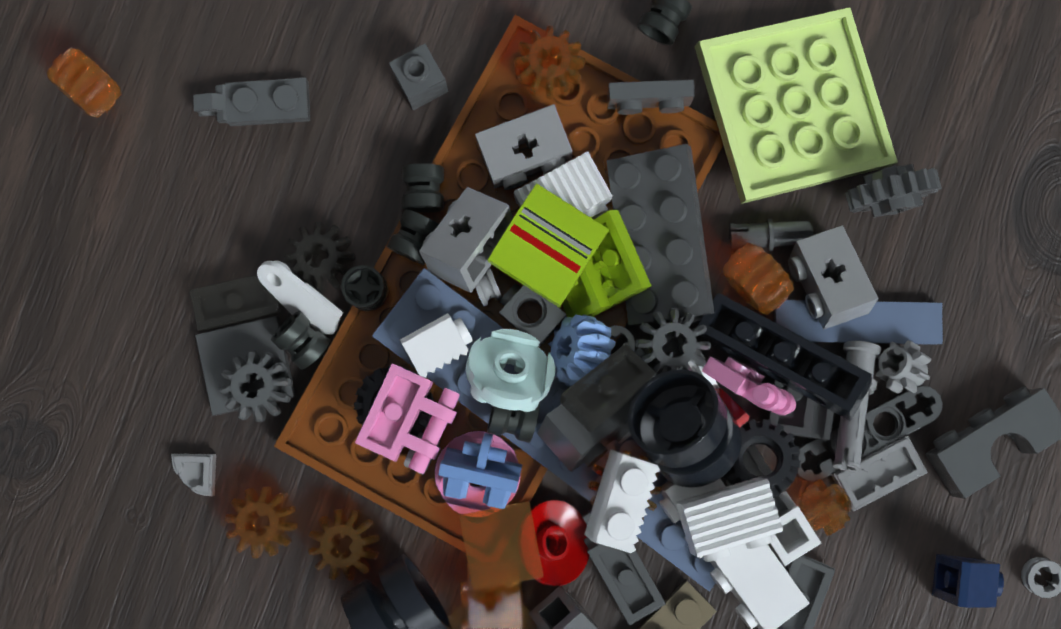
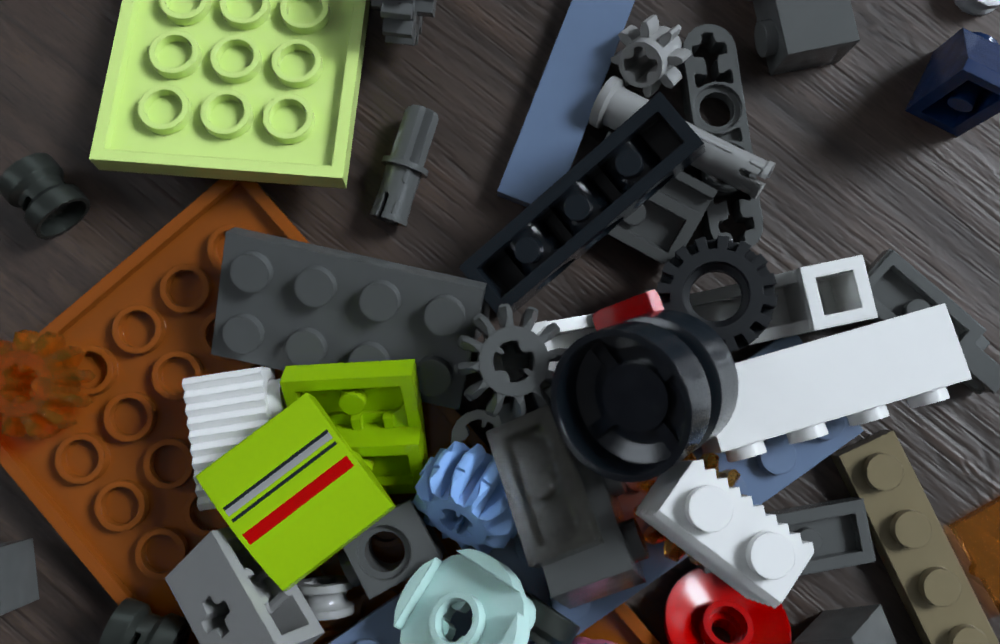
camera: 80 degrees left, 0 degrees up
(539, 131) = (122, 496): light grey brick -> none
(633, 96) = (132, 277): dark grey plate -> none
(729, 518) = (798, 374): white brick -> none
(747, 383) = (600, 276): bright pink plate -> none
(758, 278) = (459, 203): clear orange gear -> none
(825, 506) = (804, 231): clear orange gear -> none
(836, 259) = (495, 102): light grey brick -> none
(881, 473) = (783, 135): light grey plate -> none

